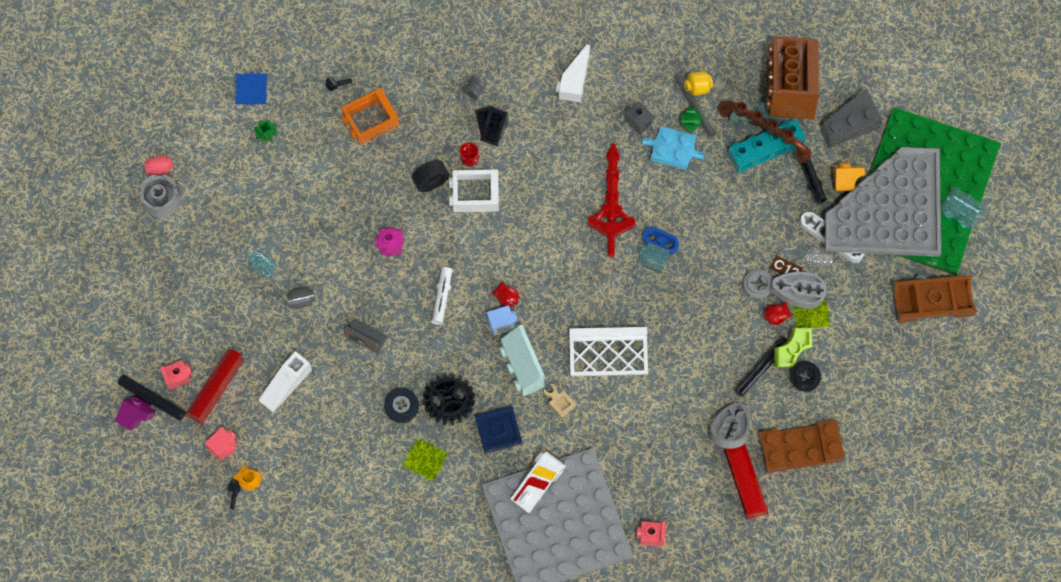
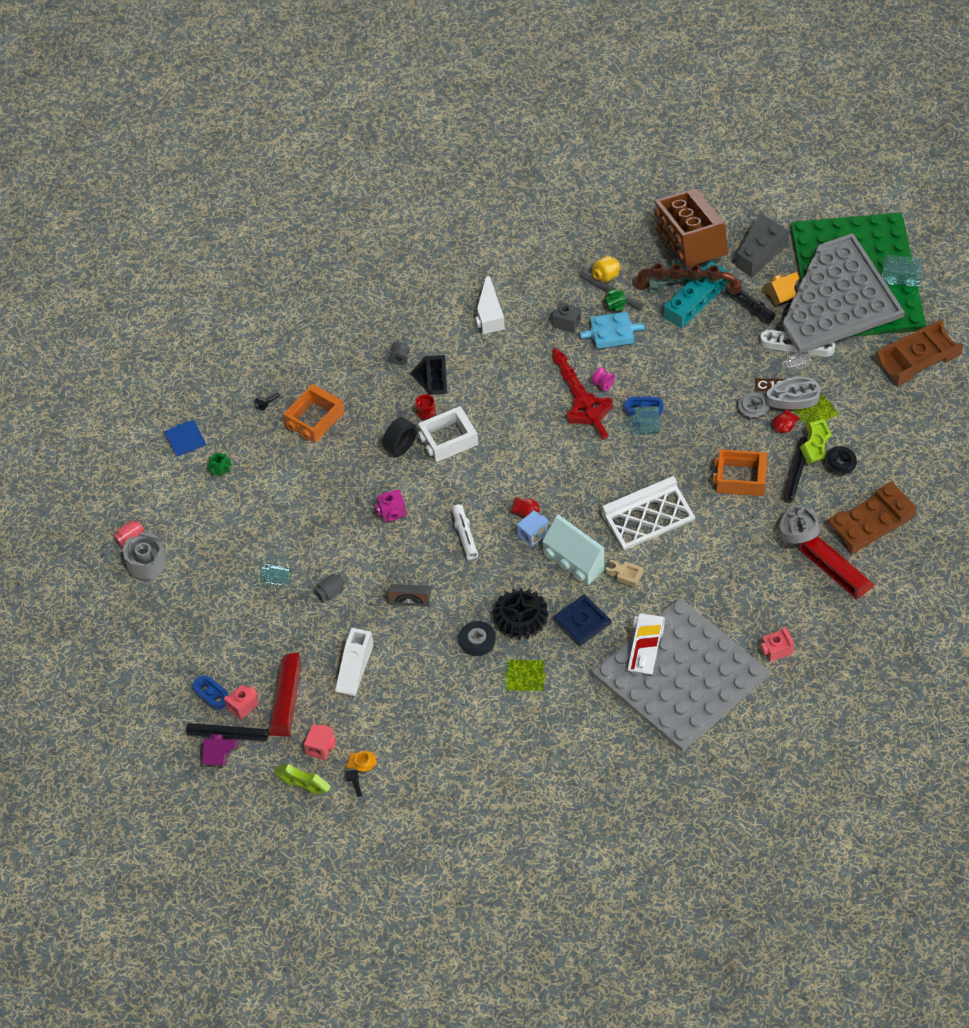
camera: 20 degrees left, 15 degrees down
(155, 354) = (212, 693): none -> blue plate
(189, 474) = (308, 781): none -> lime tile
(638, 196) = (603, 379): none -> dark pink wheel
(705, 327) = (741, 459): none -> orange window

